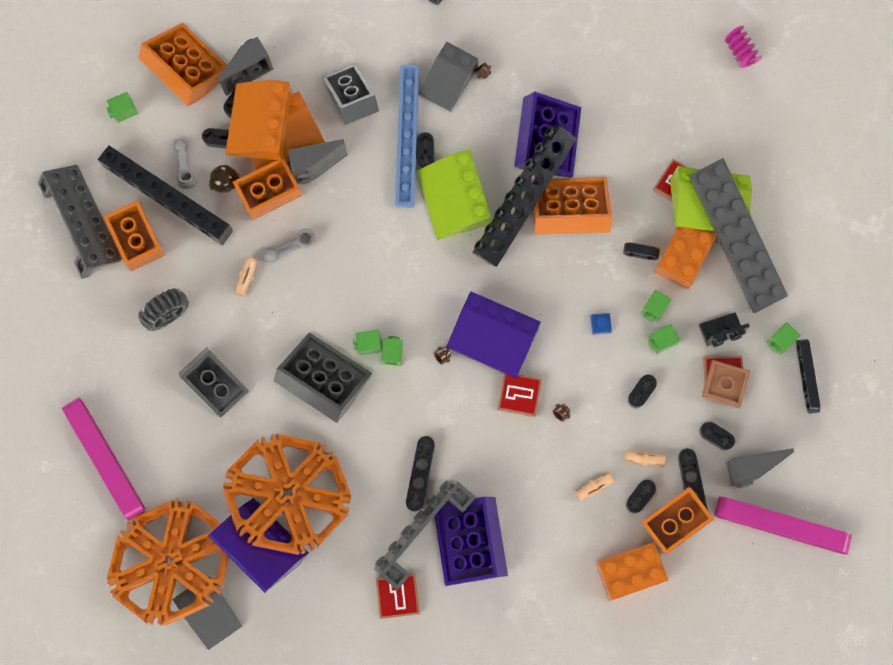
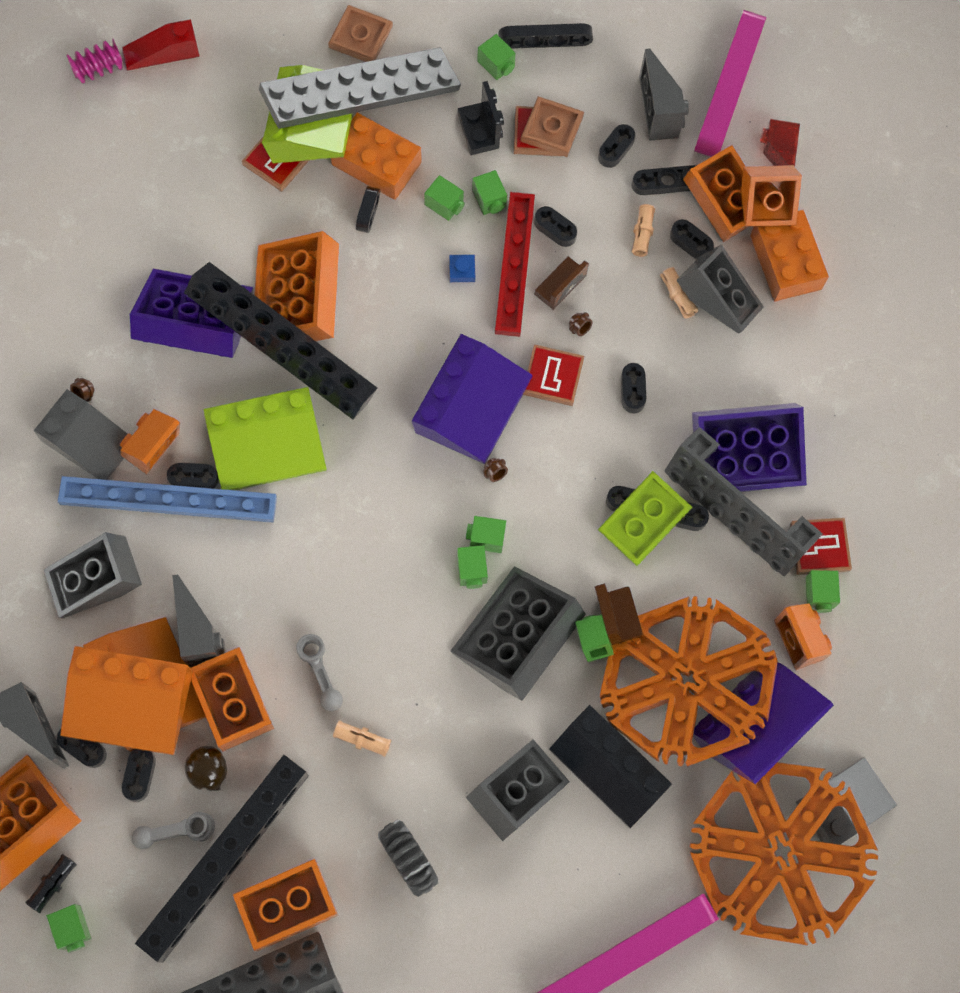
camera: 95 degrees left, 5 degrees down
(150, 94) = (51, 883): none -> black pin
(229, 443) = (610, 766): none -> black slope
(319, 428) = (594, 637): none -> bright green brick
(325, 580) = (803, 635): none -> orange slope
(337, 445) = (619, 614): none -> reddish brown panel
(361, 595) = (822, 590): none -> bright green brick
(409, 463) = (644, 518): none -> lime tile
(445, 117) = (150, 440): none -> orange slope
(513, 449) = (639, 388): none -> black beam
(595, 397) = (561, 282): none -> reddish brown panel
(595, 517) = (721, 289): none -> dark grey slope
(607, 361) = (514, 264): none -> red plate
(672, 549) = (770, 195): none -> orange slope
(730, 566) = (780, 142): none -> clear red slope
(762, 93) = (164, 45): none -> red slope
(793, 235) = (360, 34): none -> nougat tile

